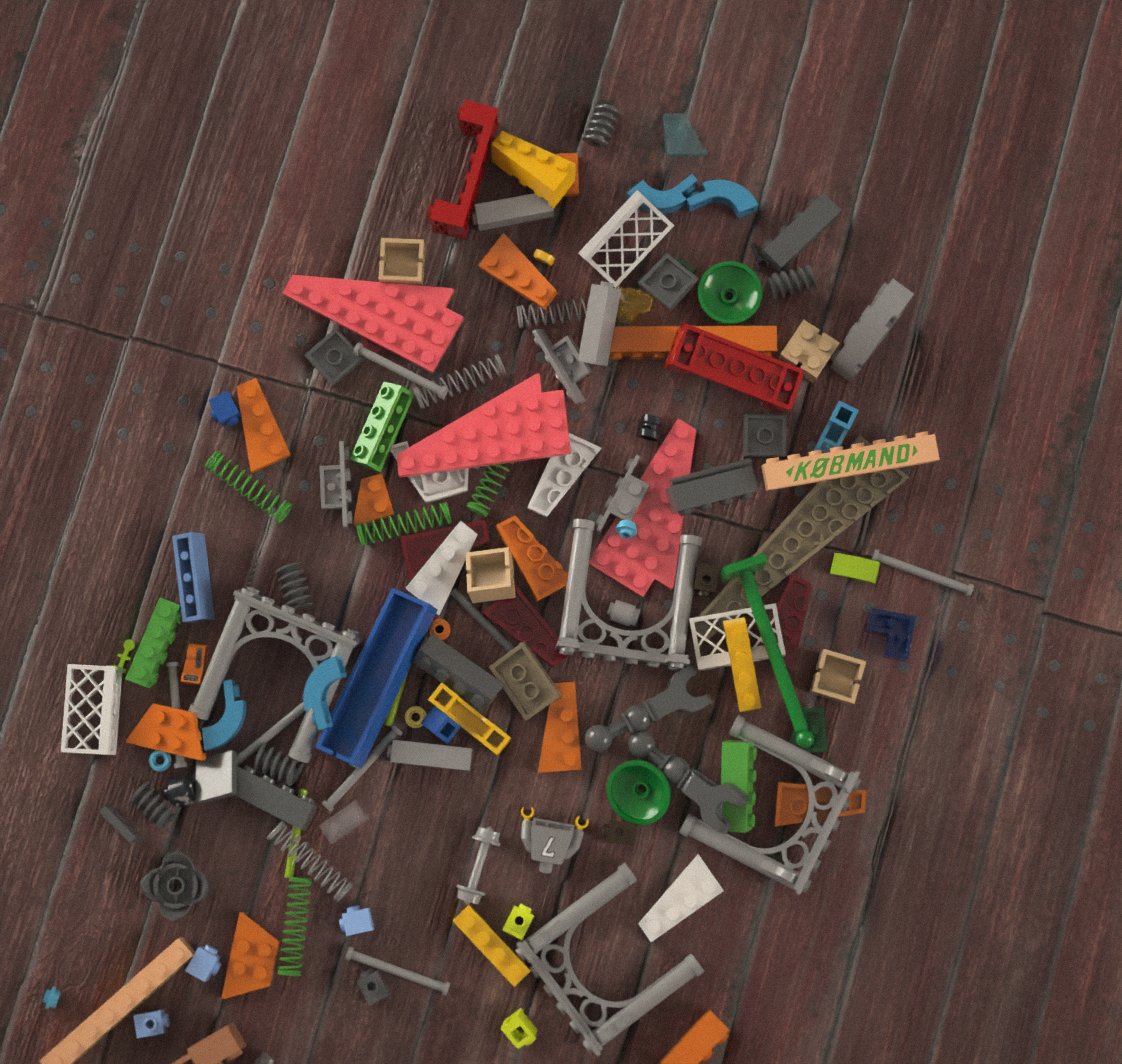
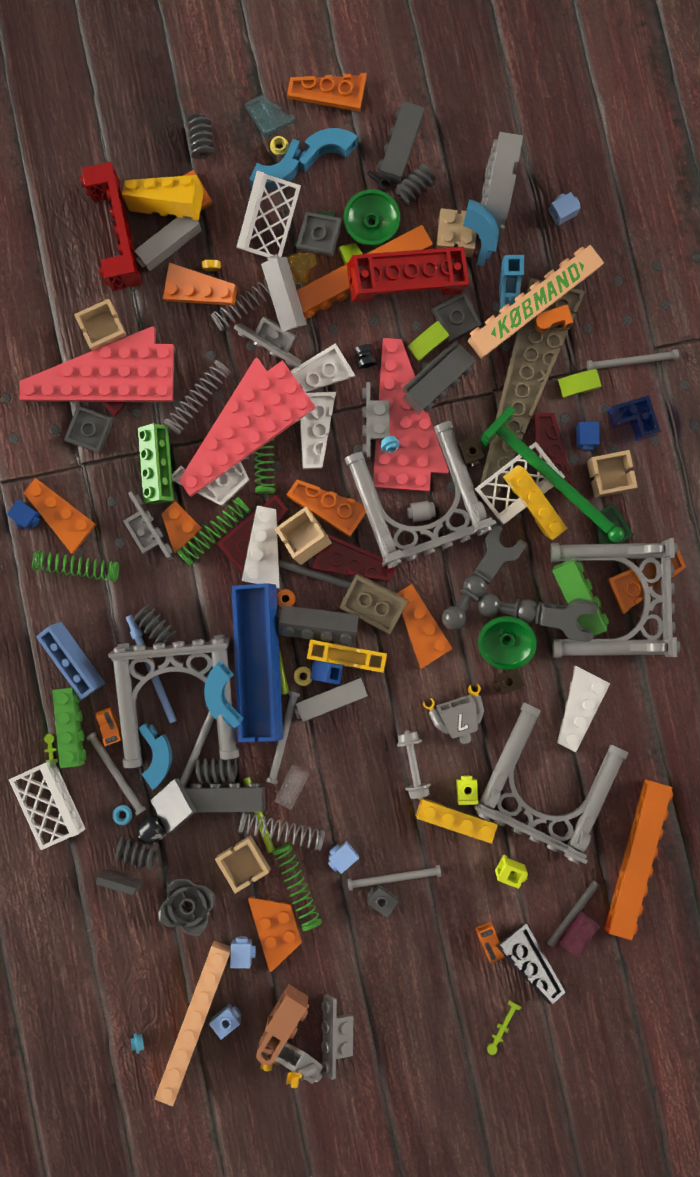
camera: 30 degrees left, 5 degrees up
(169, 731) = (117, 789): orange wing -> none
(253, 873) = (241, 863): none -> tan piece
(271, 586) = (136, 633): none -> light blue bar
(361, 350) = (104, 412): light grey bar -> none
(599, 419) = (323, 370): none -> white wing
(676, 166) = (279, 140): none -> light yellow plate
(690, 315) = (347, 251): none -> lime slope
(722, 445) = (428, 340): none -> lime slope
(761, 147) = (337, 92): none -> orange wing
(833, 625) = (587, 435): none -> blue brick
(837, 362) = (485, 225): none -> dark azure arch
(859, 488) = (553, 318): none -> orange leg
(932, 382) = (564, 208): none -> light blue brick

